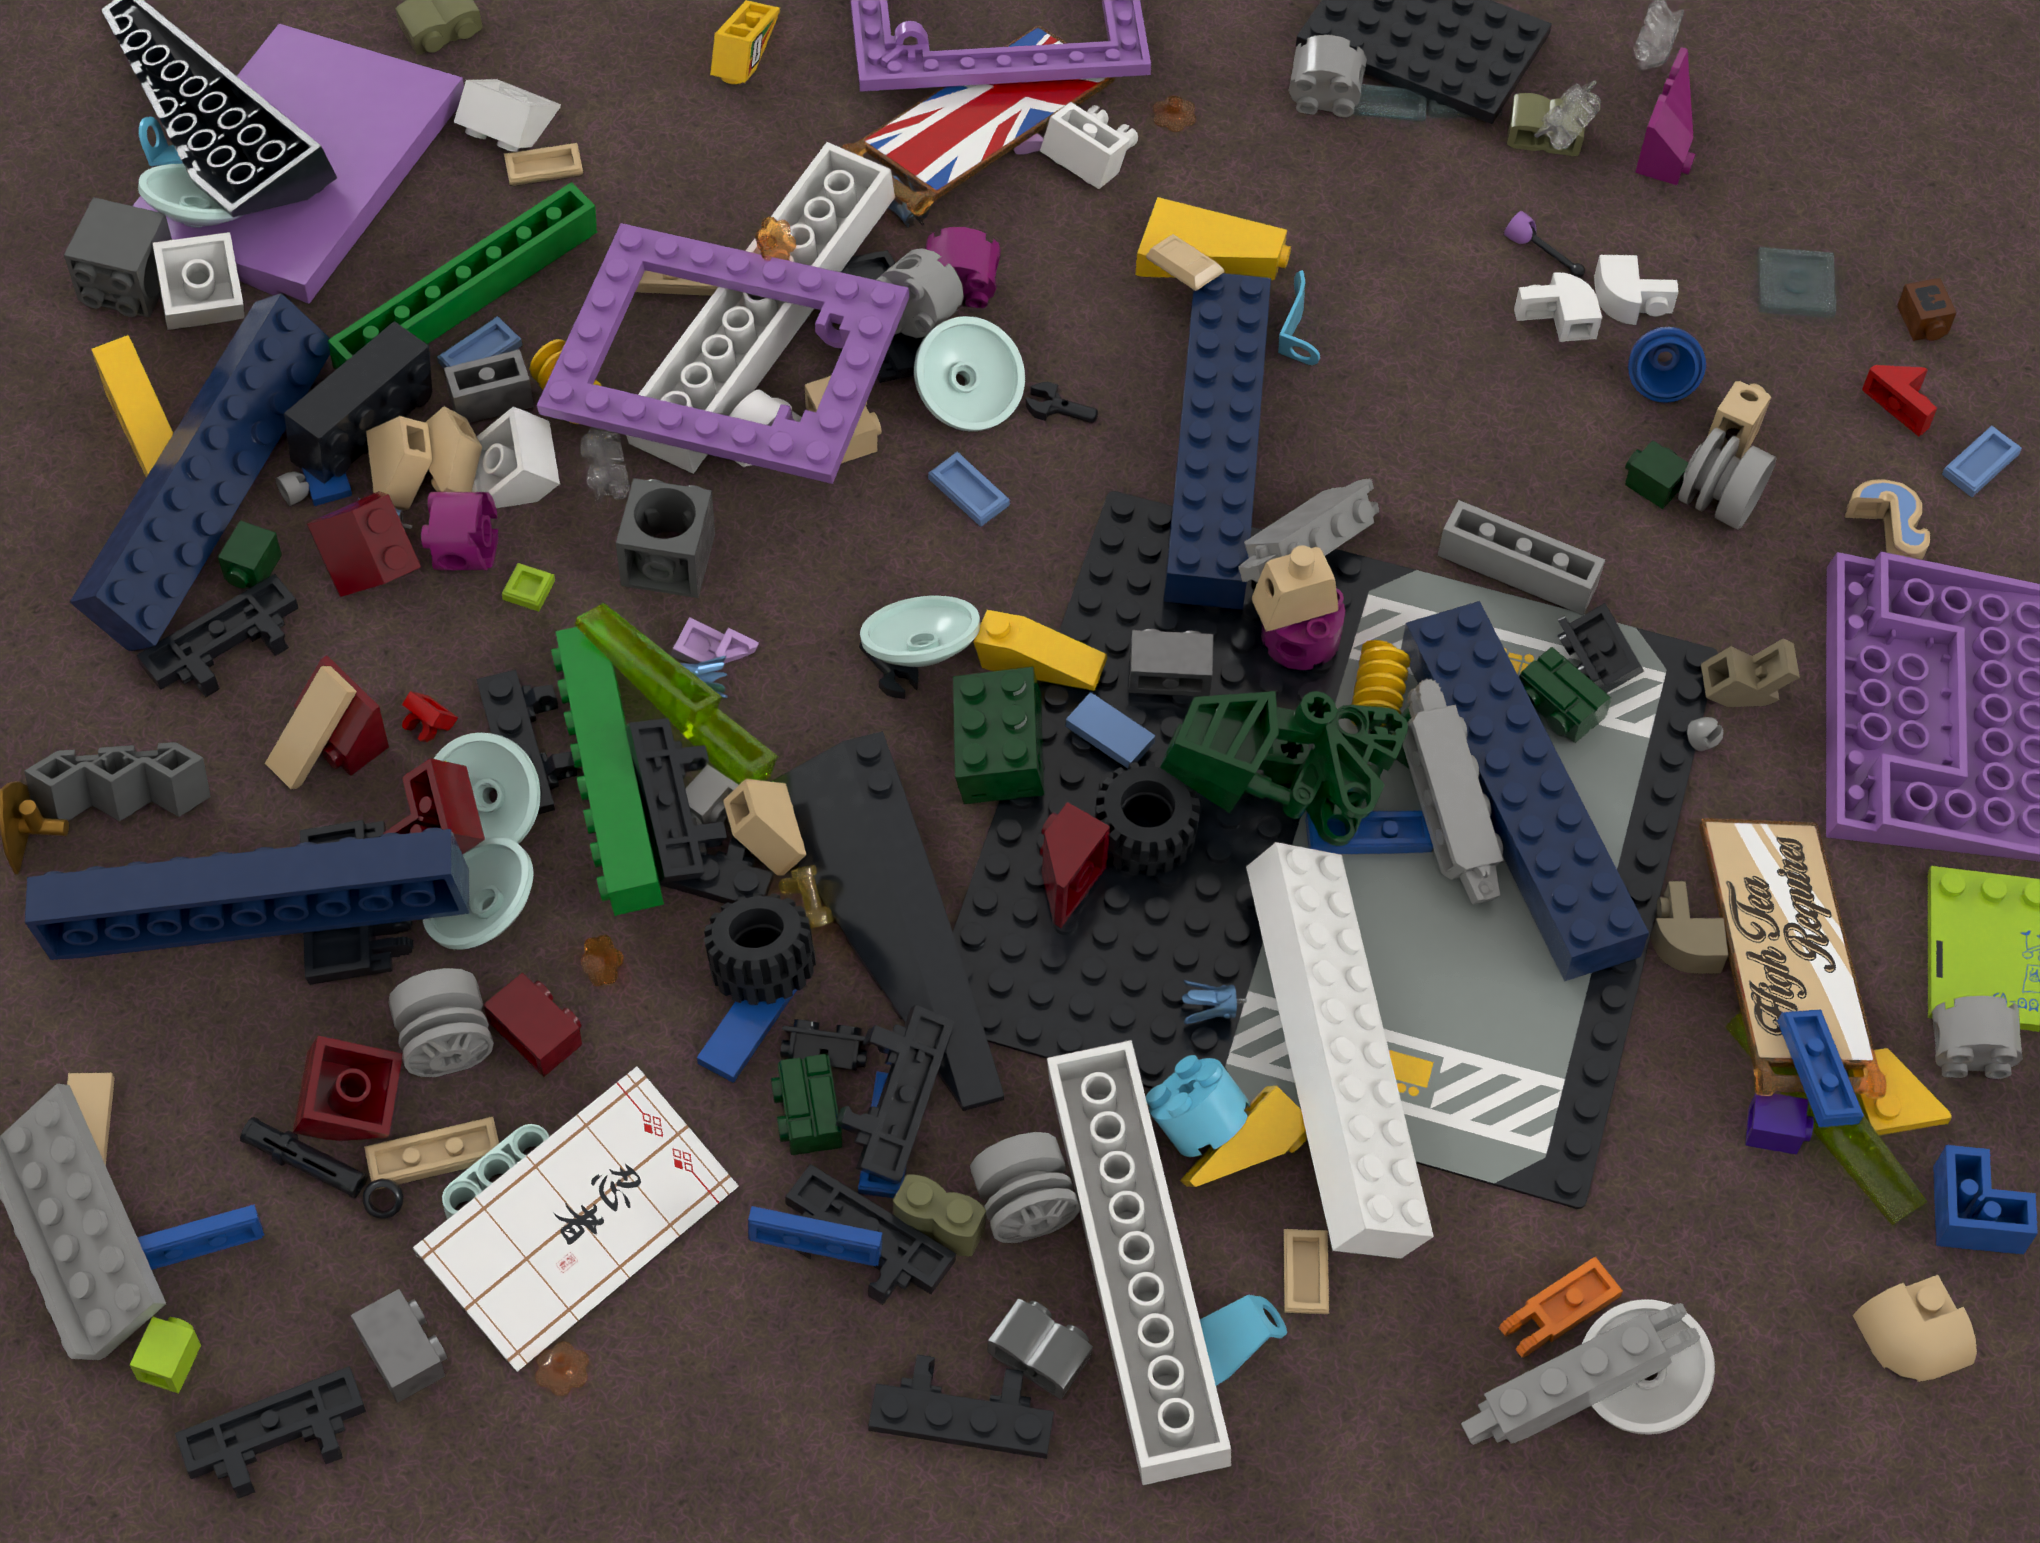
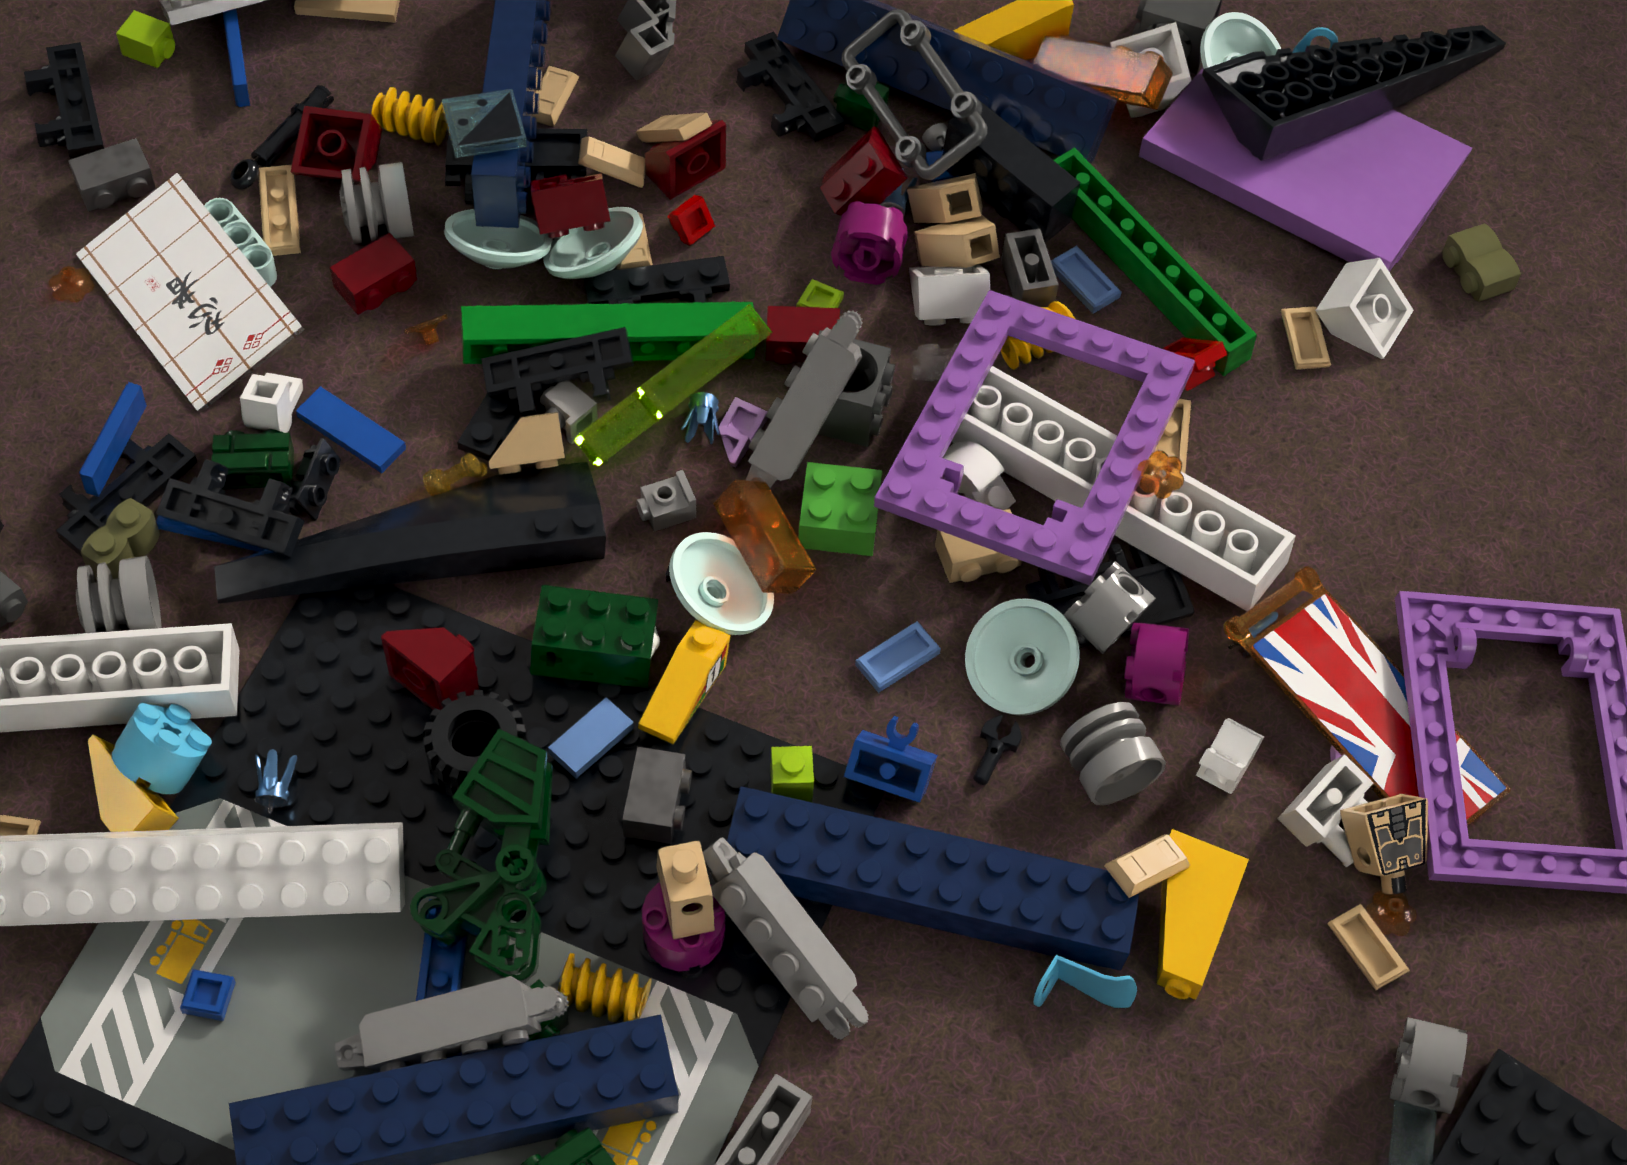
camera: 95 degrees right, 0 degrees up
(215, 317) = (1117, 71): none -> clear orange brick
(240, 537) = (964, 105): none -> dark grey bar
(285, 1018) = (410, 117): none -> yellow piece
(349, 798) = (612, 161): none -> tan tile
(372, 870) = (484, 123): none -> clear light blue tile
(583, 250) = (1203, 352): none -> red slope
(584, 583) = (793, 329): none -> dark red brick
(718, 543) = (807, 403): none -> light grey hinge
(736, 1094) = (270, 401): none -> white brick
(742, 41) = (1463, 505): yellow slope -> none
(760, 948) = (395, 449): black tyre -> none
(809, 540) = (839, 508): none -> bright green brick
(815, 696) = (667, 502): none -> light grey brick
(855, 600) = (764, 536): none -> clear orange brick
(1044, 220) = (1229, 755): none -> white brick
(1067, 297) = (1112, 753): none -> light grey wheel
(1102, 473) = (891, 762): none -> blue brick
(1129, 104) = (1388, 838): none -> torso
(1132, 549) = (792, 772): none -> lime brick
(1213, 127) = (1368, 947): none -> tan tile
(1444, 1030) = (207, 995): none -> blue tile

